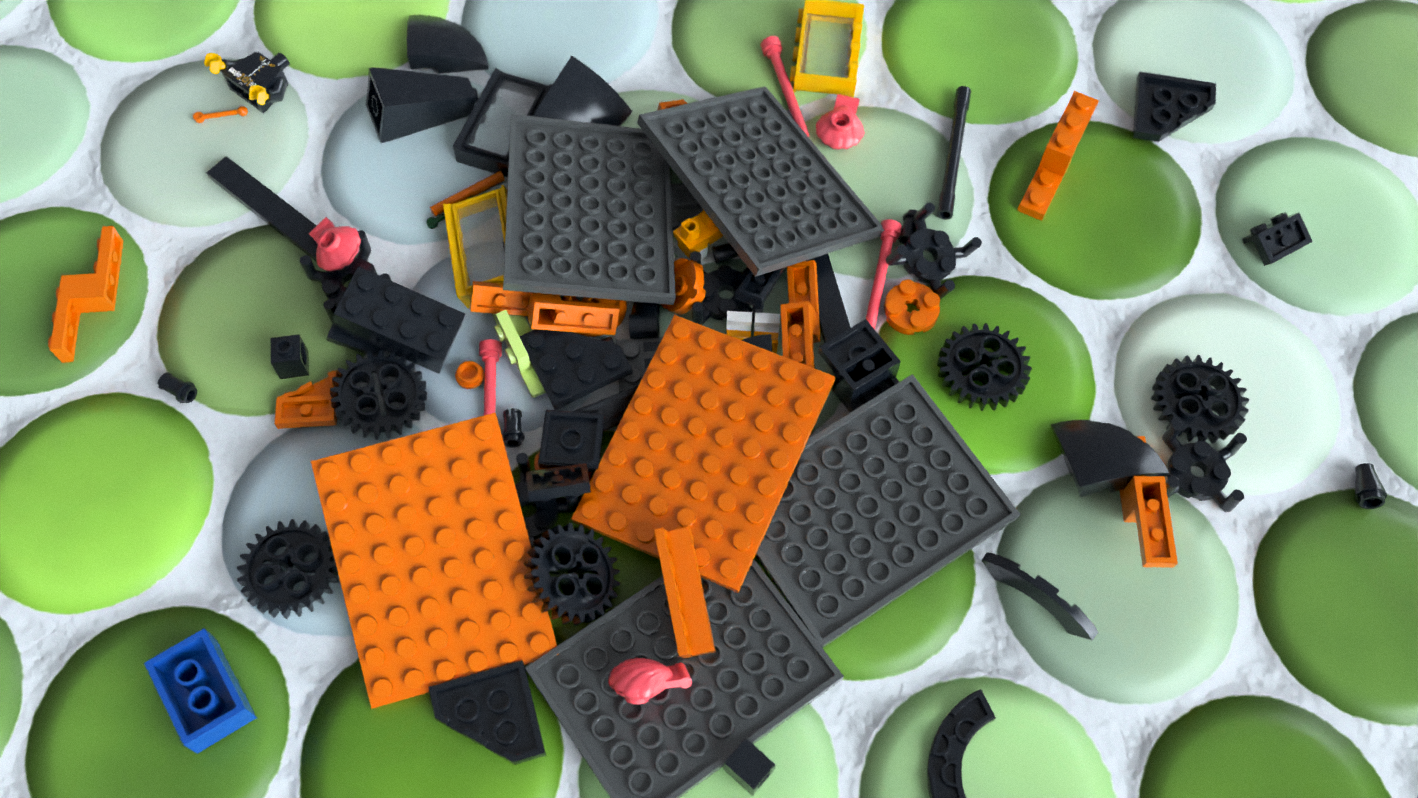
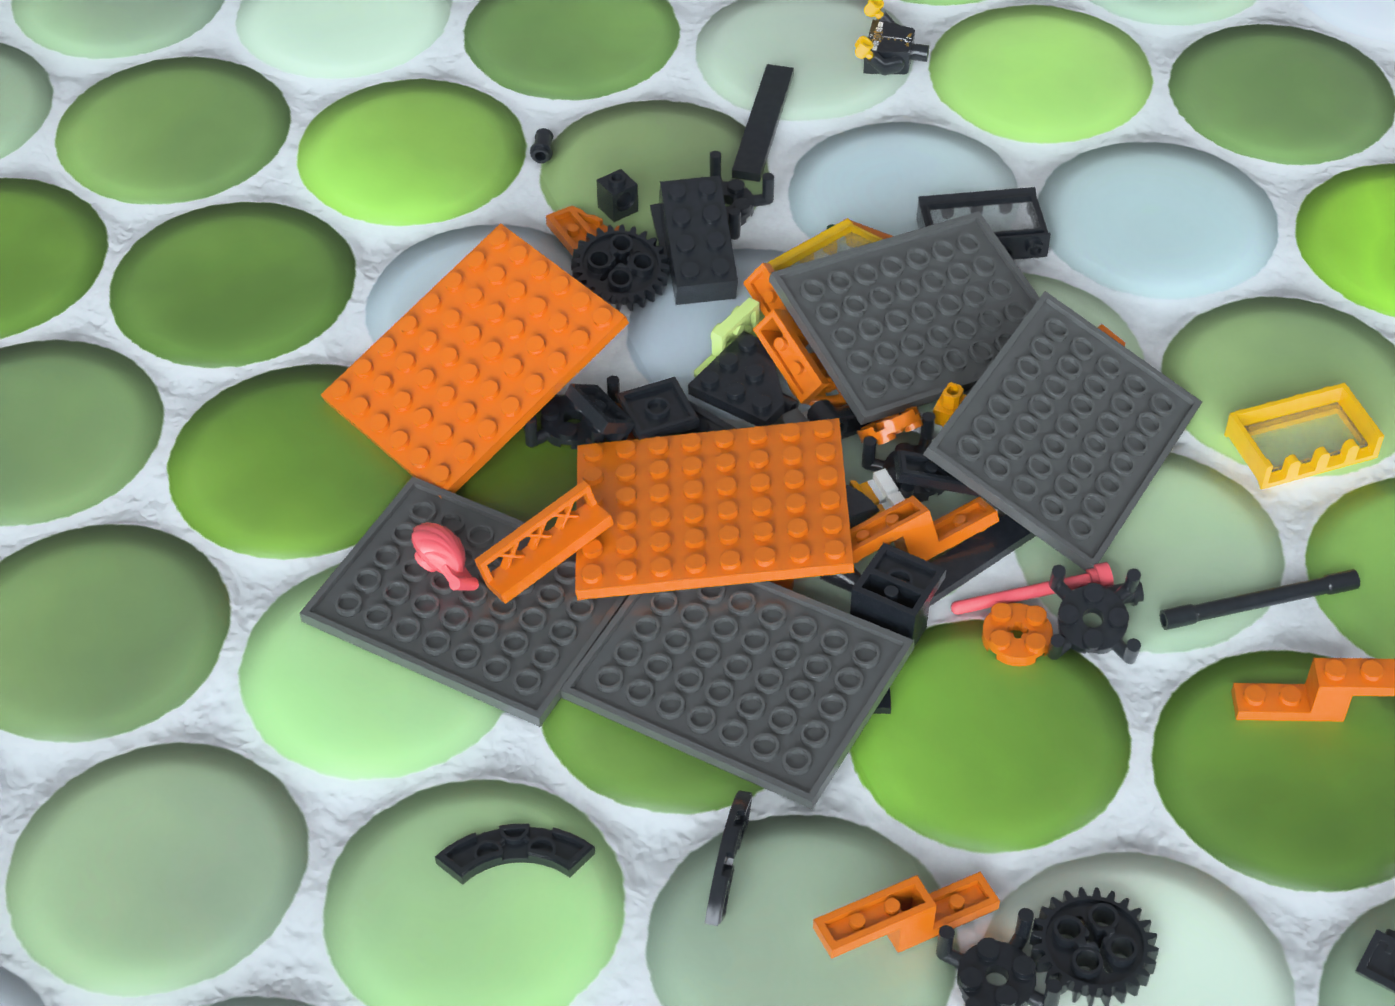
camera: 65 degrees right, 15 degrees down
(86, 294) = (592, 52): orange bracket -> none
(199, 117) = (824, 36): orange hinge -> none
(200, 691) = (275, 279): blue brick -> none
(279, 593) = (392, 285): black gear -> none
(335, 245) = (746, 167): coral animal -> none
(415, 101) = (949, 151): black slope -> none
(442, 45) = (1036, 146): black brick -> none
(469, 375) = (685, 321): orange plate -> none
(490, 351) = (662, 348): coral piece -> none
(492, 711) = (361, 475): black plate -> none
(512, 432) = (649, 373): black pin -> none
(569, 546) = (544, 450): black gear -> none
(583, 97) = (1049, 258): black brick -> none
(749, 766) = (402, 677): black panel -> none
(772, 50) = (1258, 391): coral piece -> none
(841, 126) = (1207, 486): coral animal -> none
(995, 386) = (982, 709): black gear -> none
(1104, 455) = (945, 855): black brick -> none

